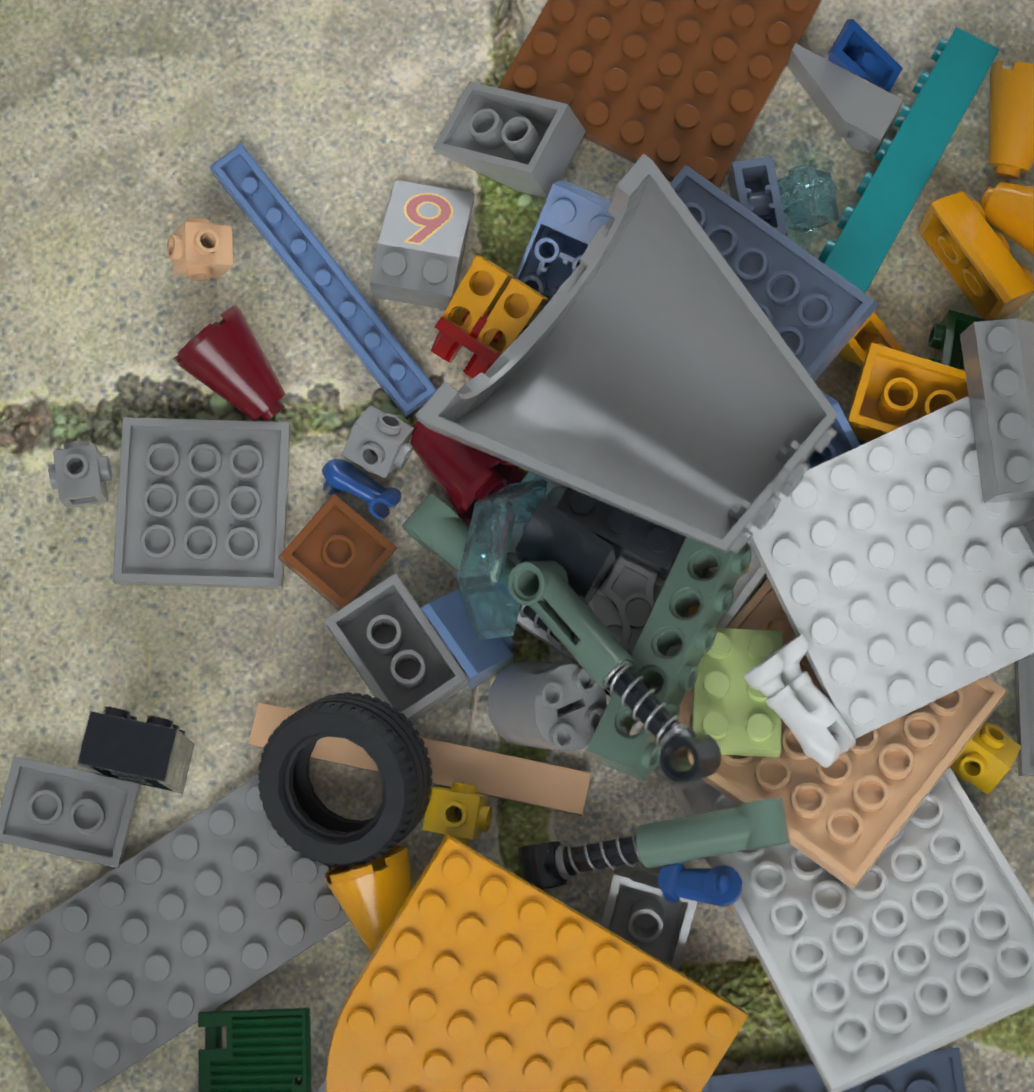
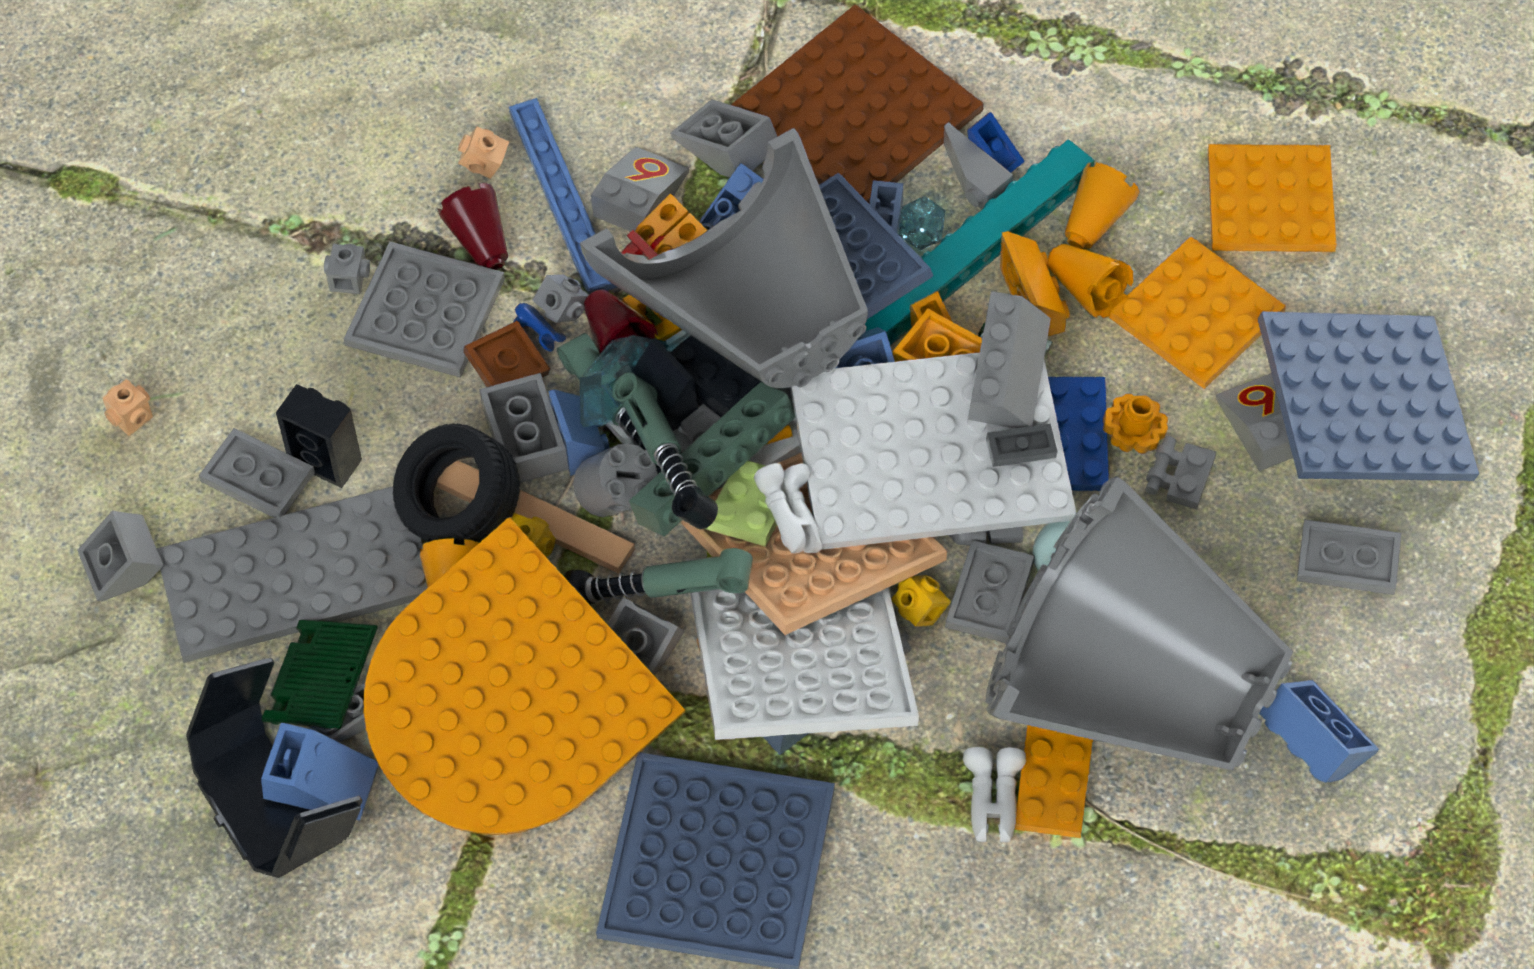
camera: 20 degrees right, 20 degrees down
(711, 886) = (687, 612): blue piece -> none

